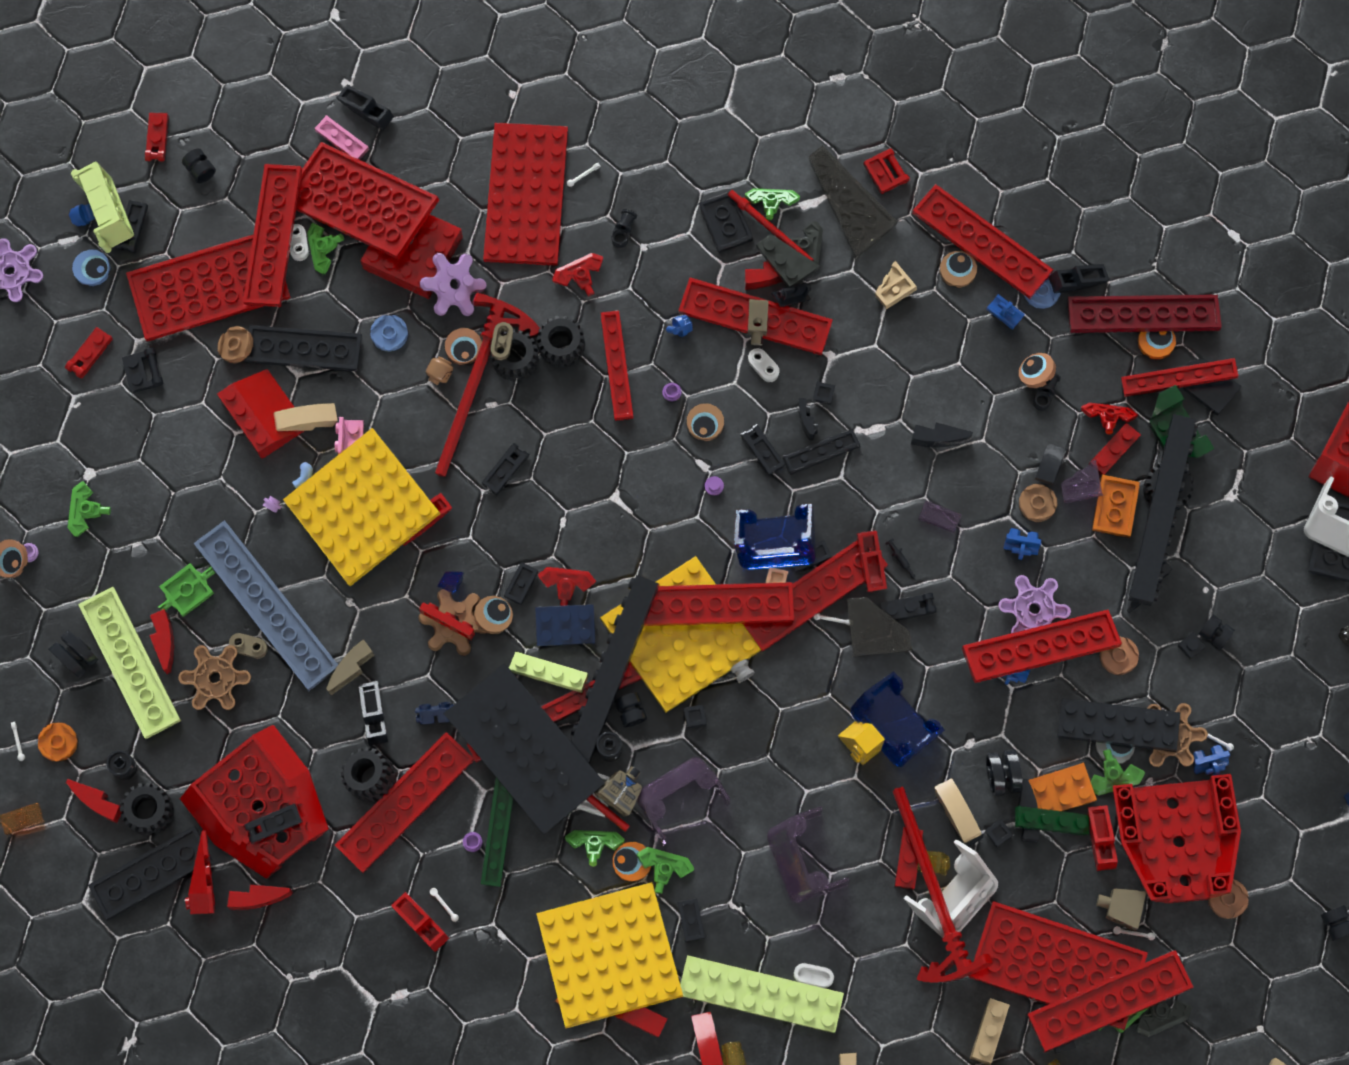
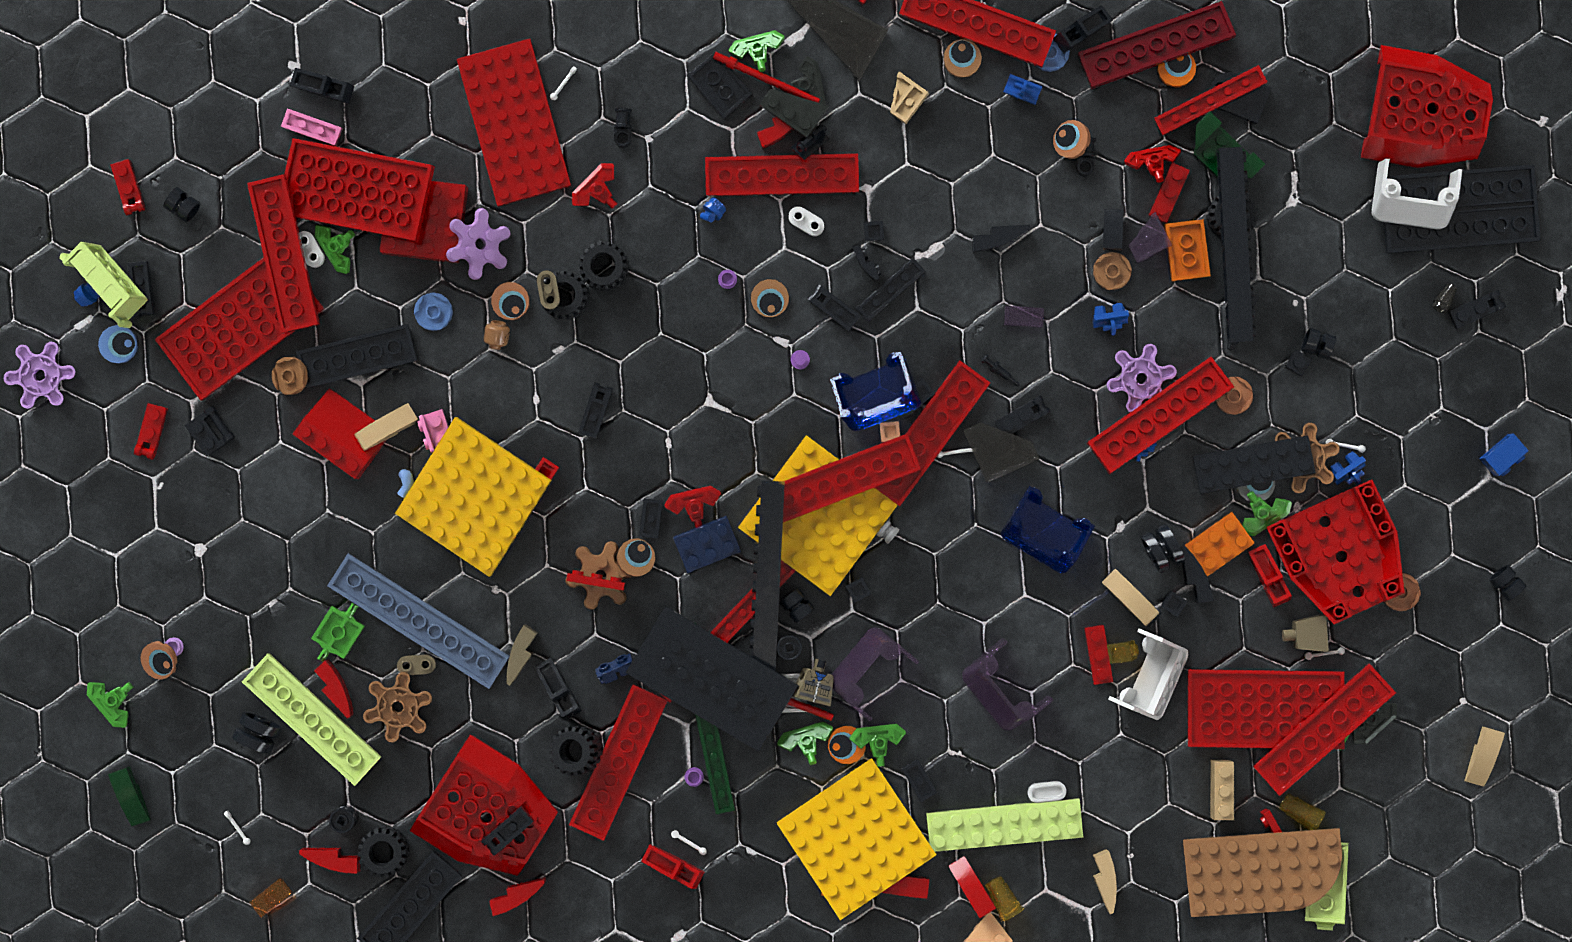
camera: 20 degrees left, 15 degrees up
(57, 741) = (274, 815): orange tile -> none
(83, 509) = (207, 588): bright green piece -> none
(201, 891) = (464, 912): red wedge -> none
(272, 504) = (386, 521): lavender plate -> none
(451, 581) = (584, 538): clear blue slope -> none
(497, 311) = (530, 254): red piece -> none
(548, 672) = (707, 594): yellowish green plate -> none
(616, 365) = (665, 270): red plate -> none
(757, 314) = (786, 174): dark tan torso -> none
(862, 741) = (1022, 563): yellow wedge -> none
(871, 560) = (974, 385): red slope -> none
(958, 956) = (1156, 754): red piece -> none
(1051, 820) = (1220, 578): dark green plate -> none

